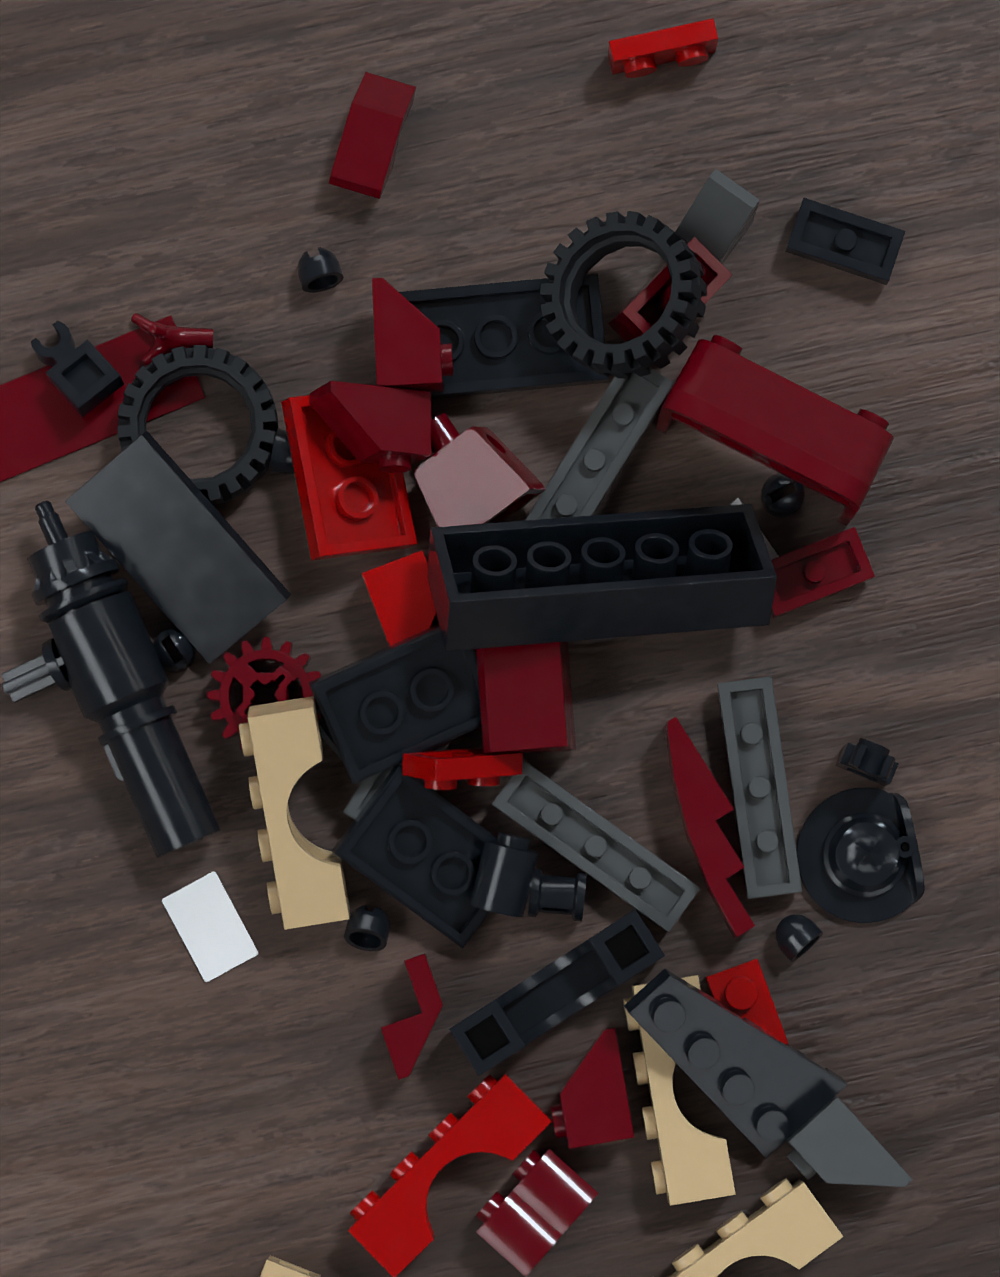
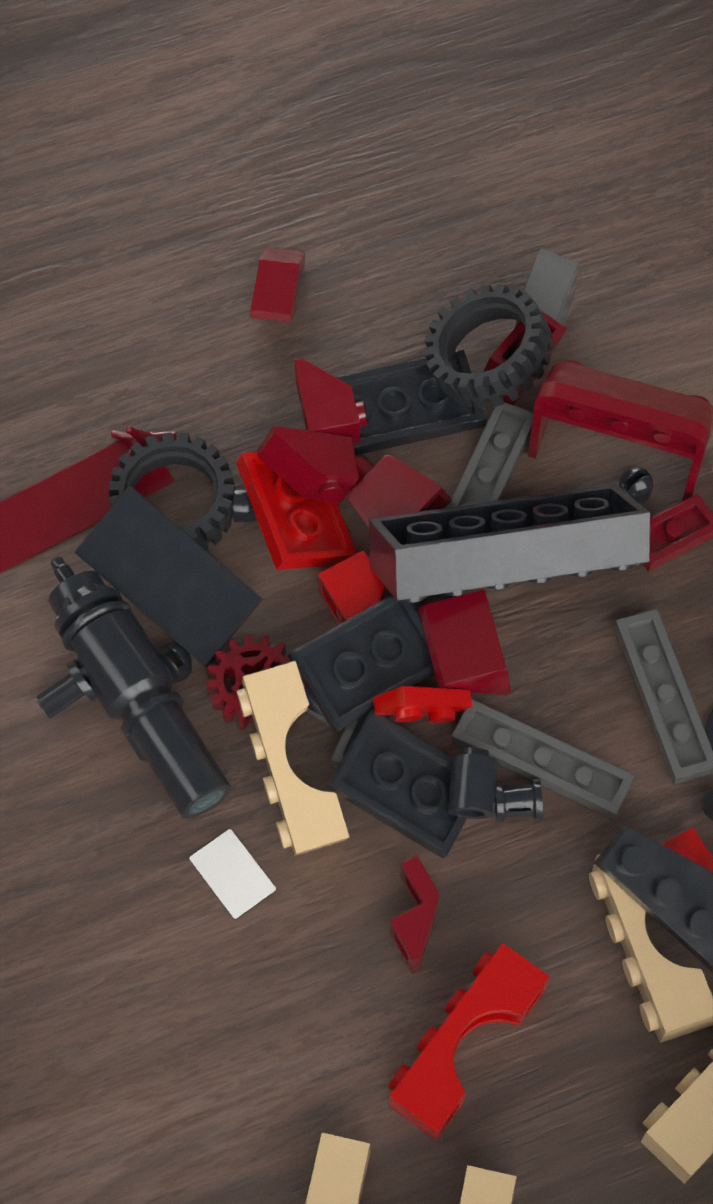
camera: 10 degrees left, 20 degrees down
(78, 373) = (75, 471): black plate -> none
(319, 272) = (259, 384): black hinge -> none
(367, 929) = (355, 855): black hinge -> none
(535, 1211) = (548, 1061): dark red brick -> none
(556, 992) = (556, 855): black arch -> none
(595, 1098) = (582, 958): dark red slope -> none
(641, 53) = (482, 200): red plate -> none
(700, 806) = (623, 719): dark red slope -> none
(845, 241) = (645, 307): black plate -> none

